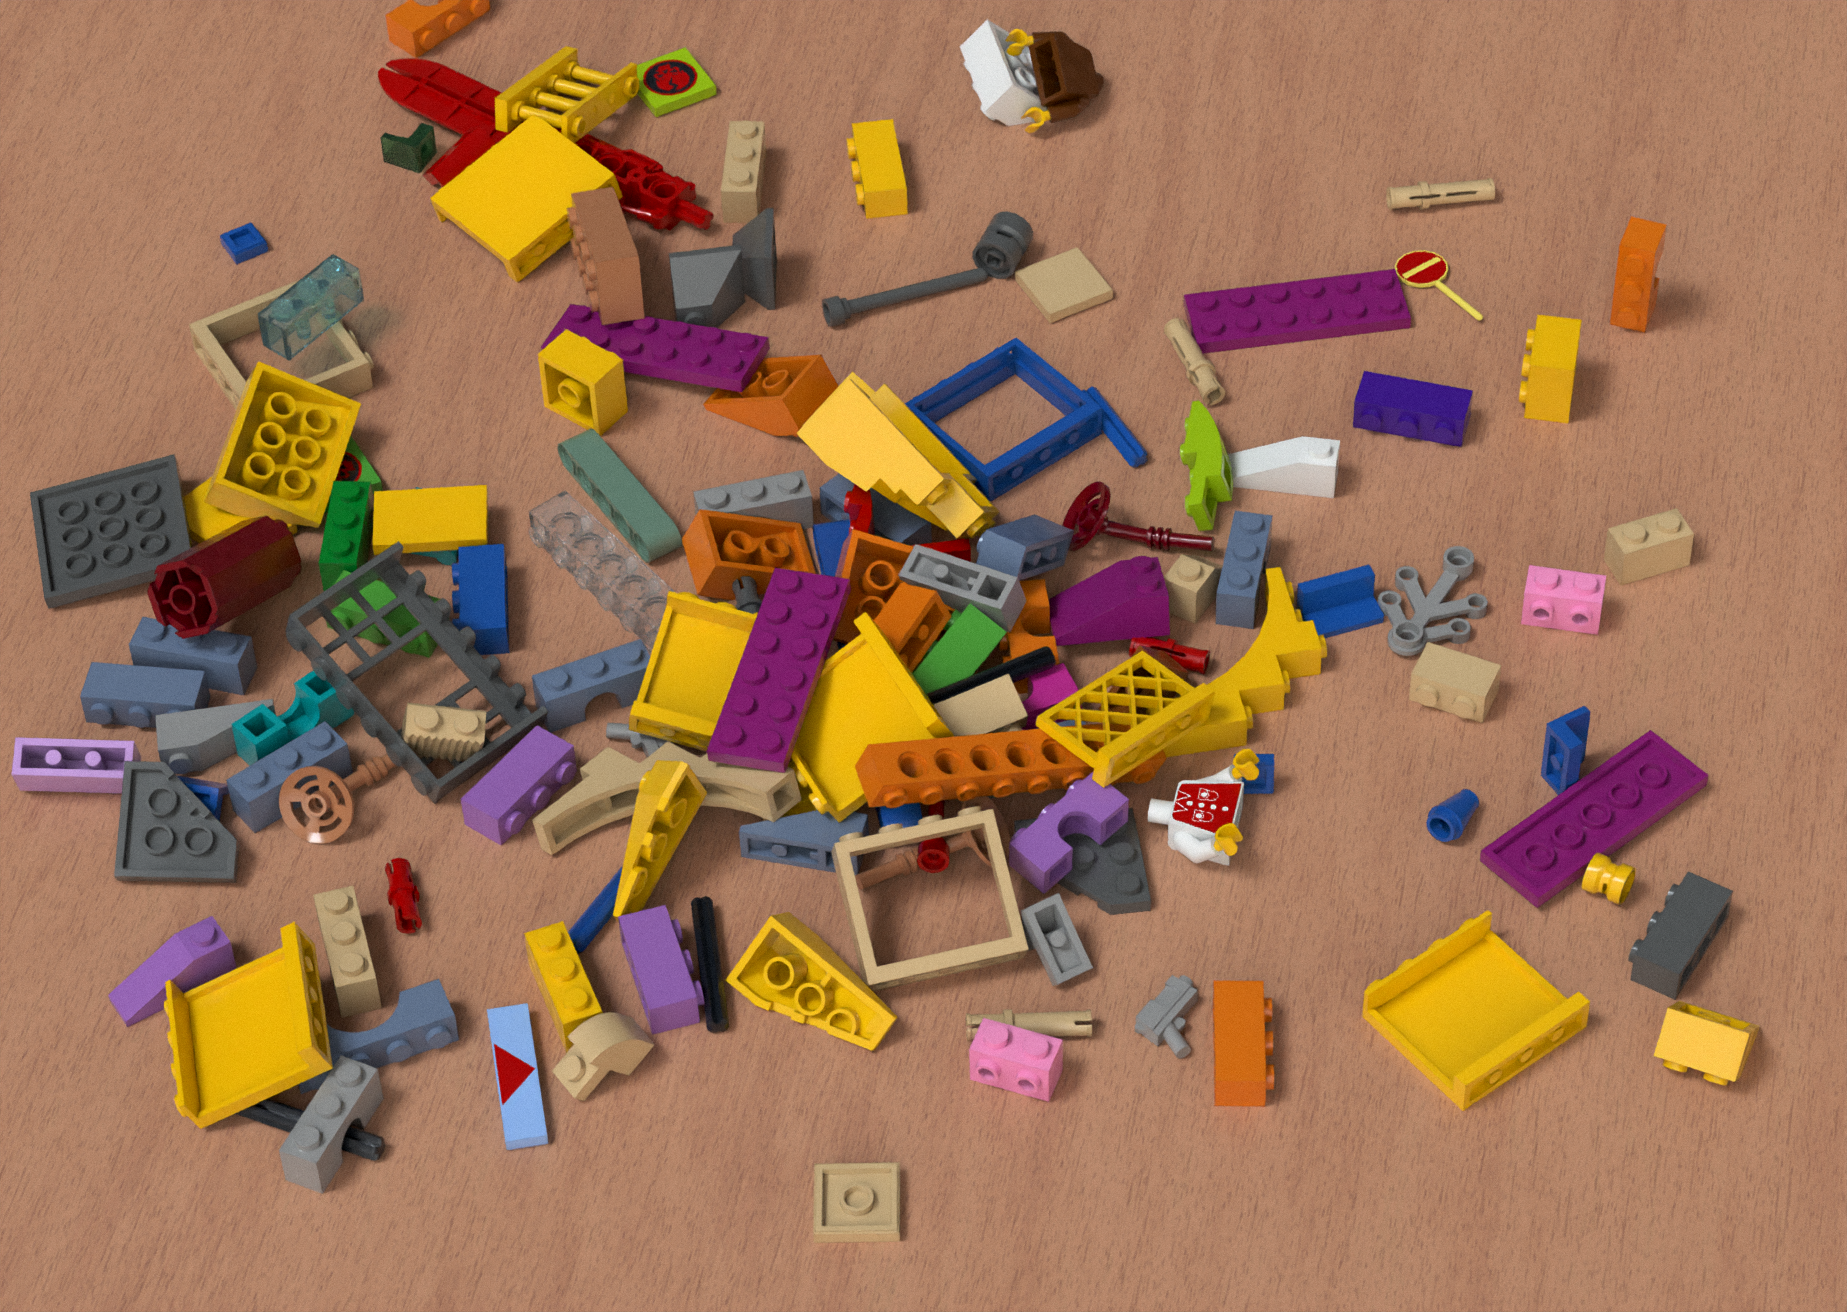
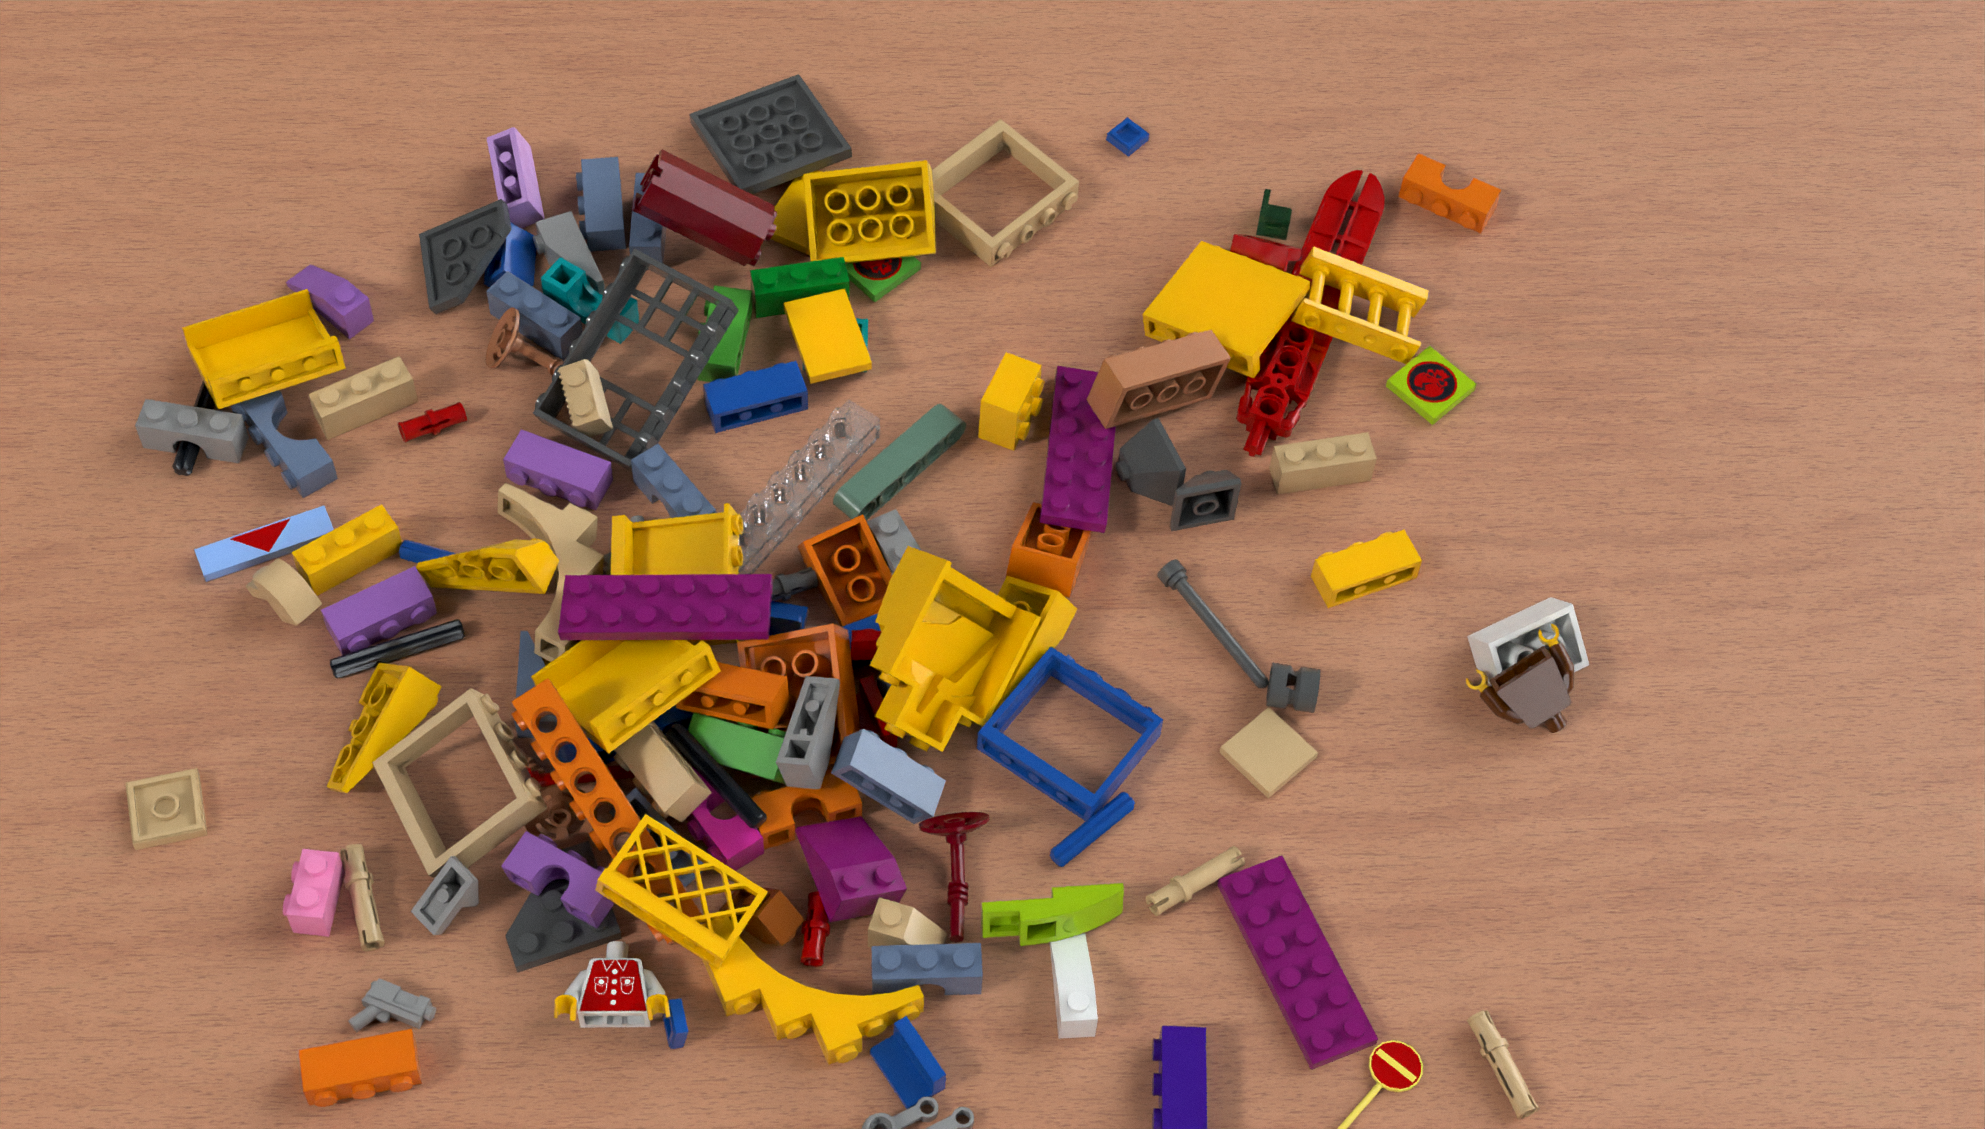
camera: 70 degrees right, 10 degrees up
(310, 307) = (1027, 187): clear light blue brick -> none

